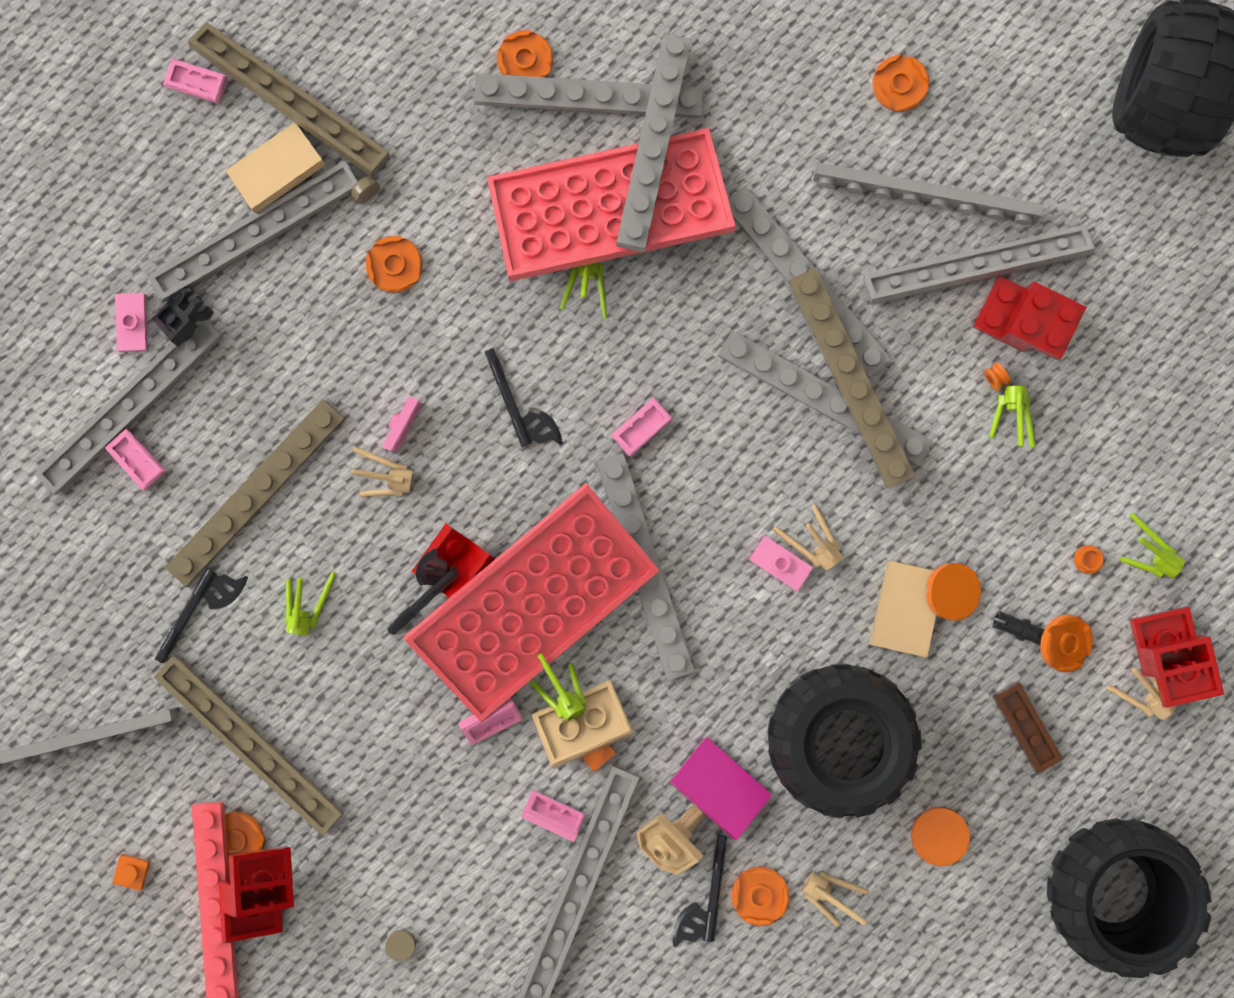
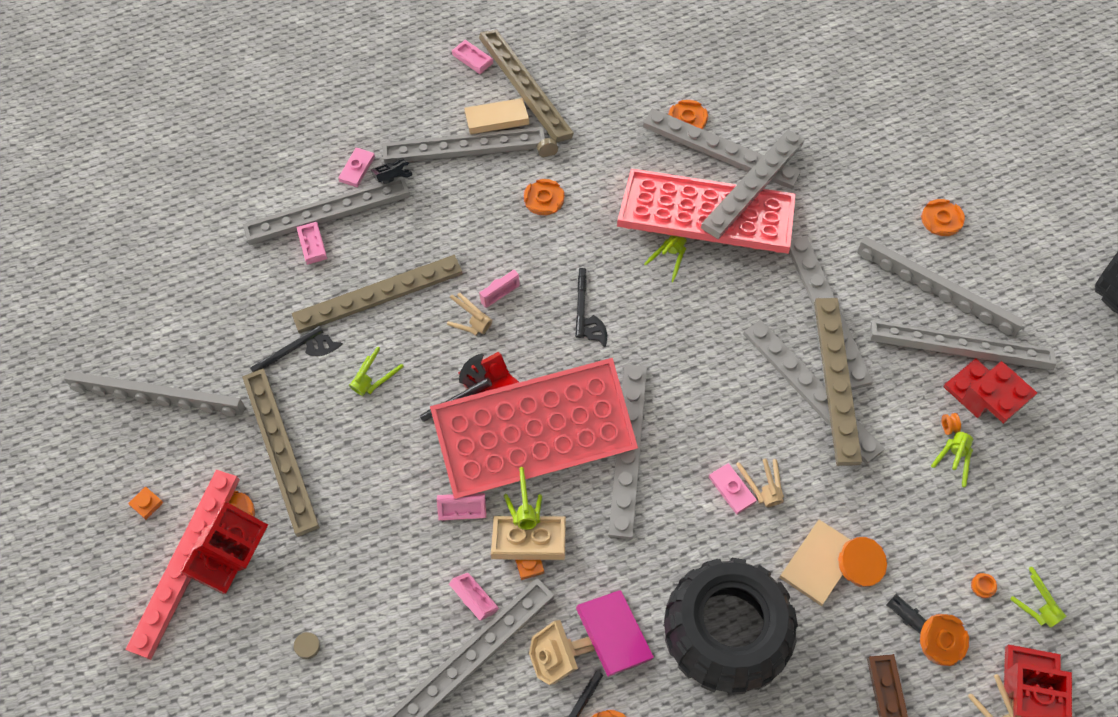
camera: 25 degrees right, 25 degrees down
(641, 427) = (667, 355): bright pink plate -> none

